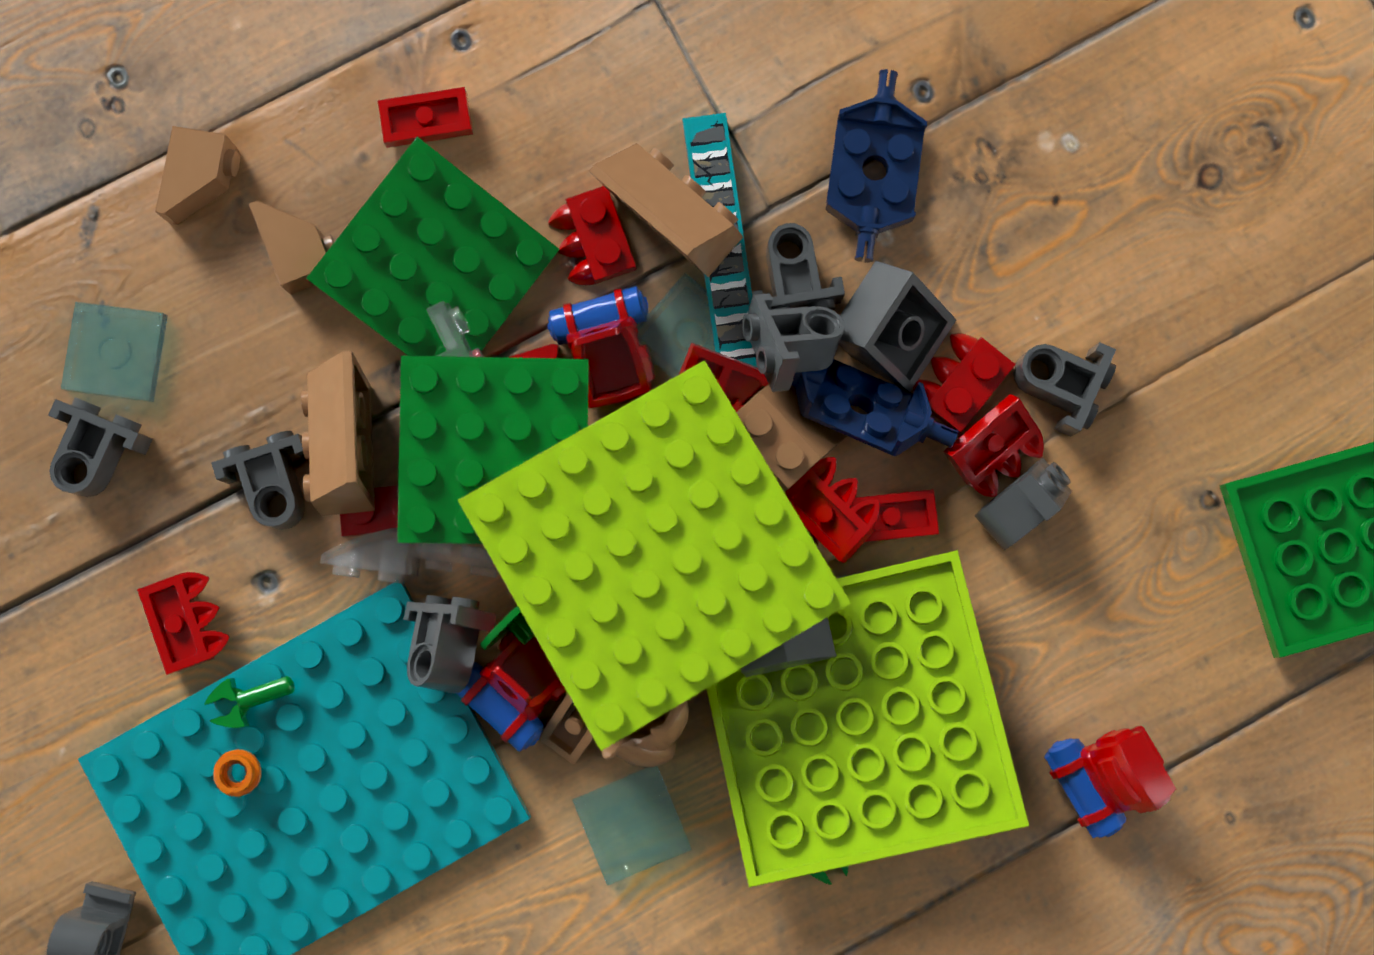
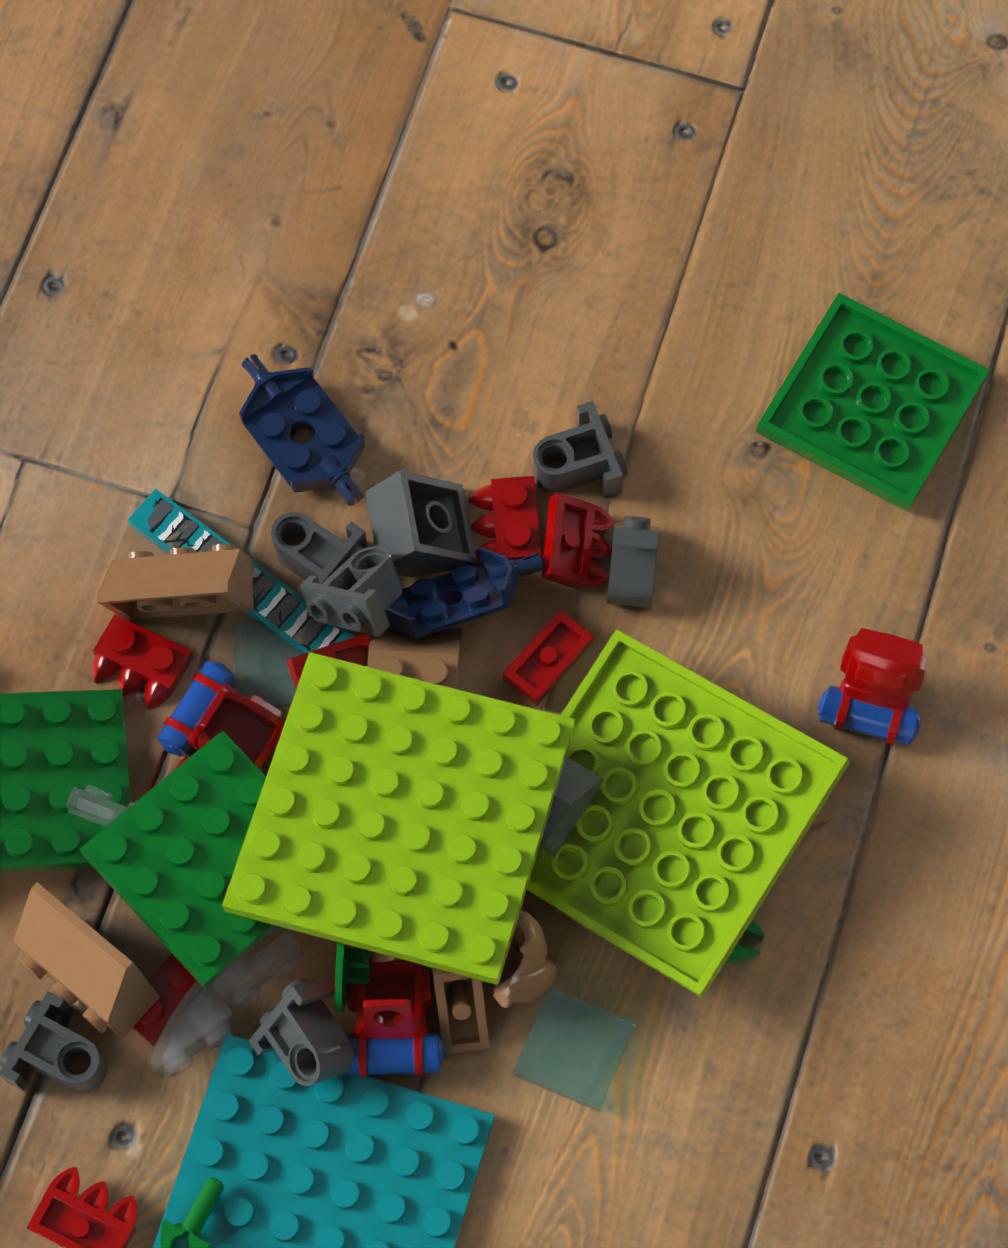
camera: 40 degrees left, 15 degrees down
(828, 509) = (521, 685): red plate -> none

